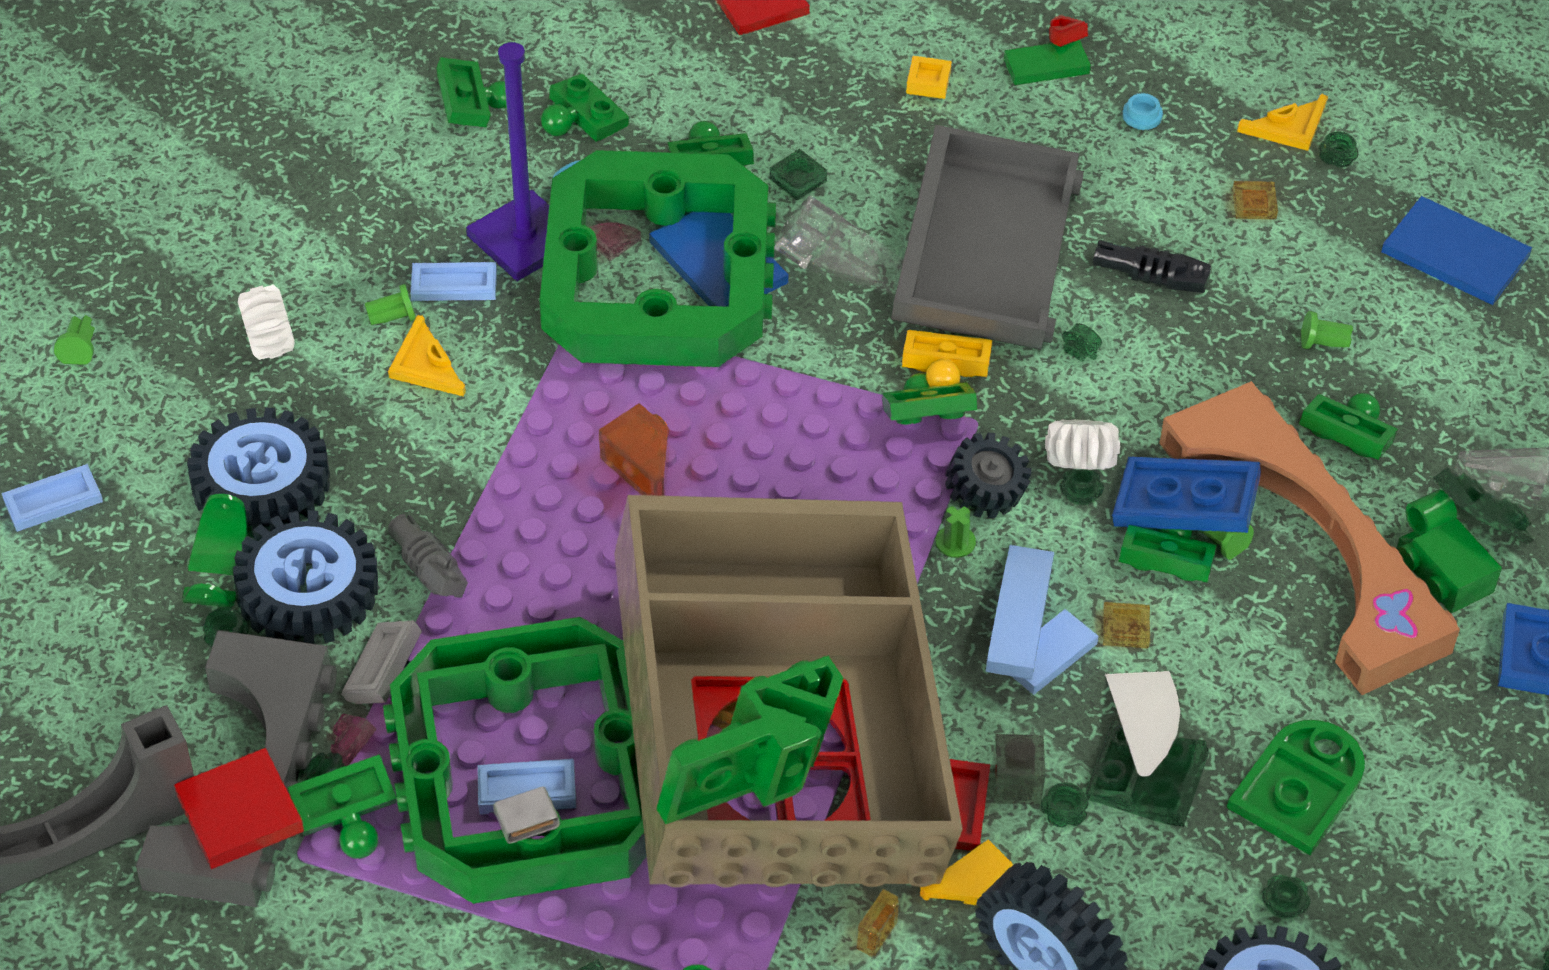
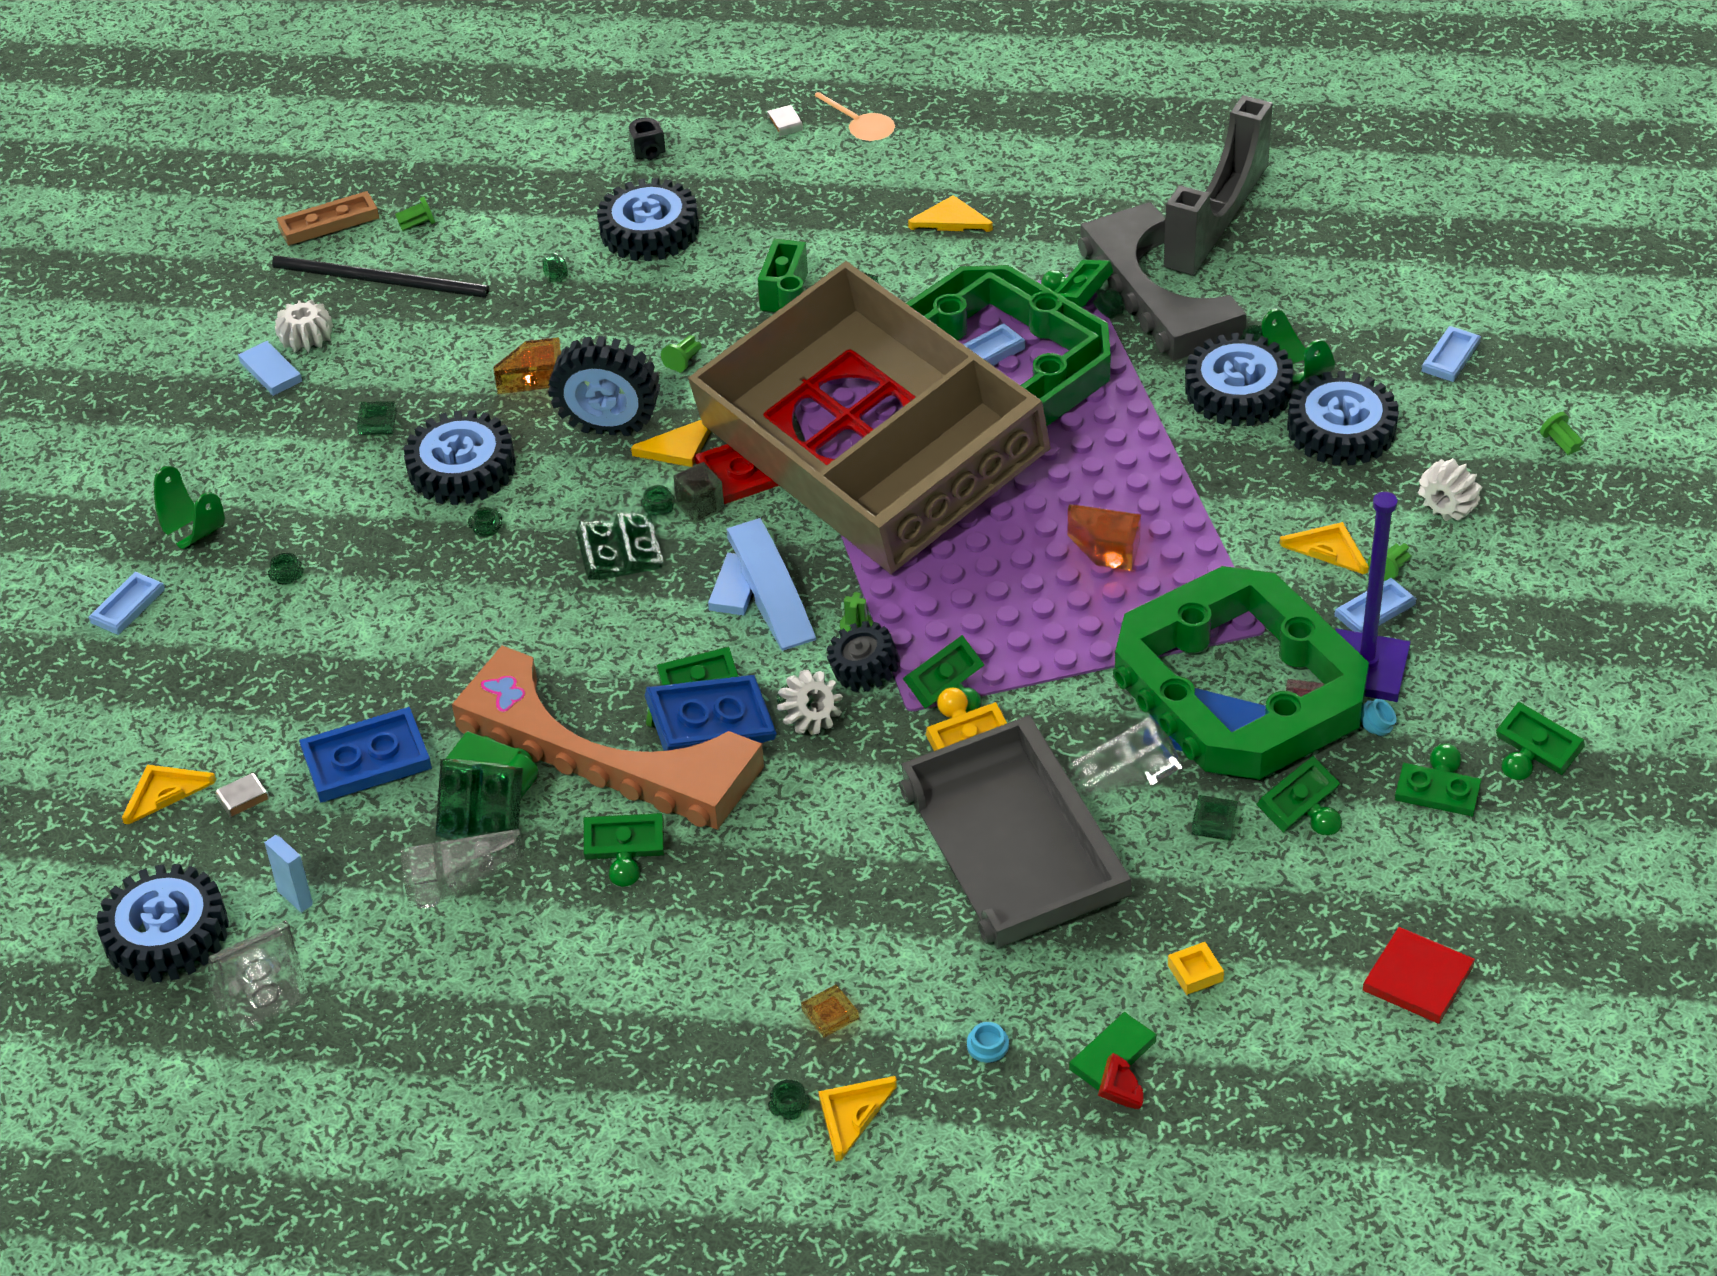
camera: 150 degrees right, 5 degrees down
(238, 808) = (1124, 240): red tile -> none
(351, 735) = (1116, 327): clear pink tile -> none
(381, 662) = (1143, 368): light grey tile -> none
(427, 557) = (1175, 420): dark grey hinge -> none
(526, 815) = (956, 297): flat silver piece -> none
(764, 748) = (818, 292): green piece -> none
(1081, 342) = (867, 802): clear green plate -> none
(1126, 625) = (696, 626): clear orange tile -> none
(1148, 715) = (638, 564): white sticker -> none
(1154, 266) = (869, 892): black hinge -> none
(1296, 787) = (514, 585): green tile -> none
(1324, 332) = (690, 910): bright green piece -> none
(1456, 250) = (626, 1058): blue tile -> none

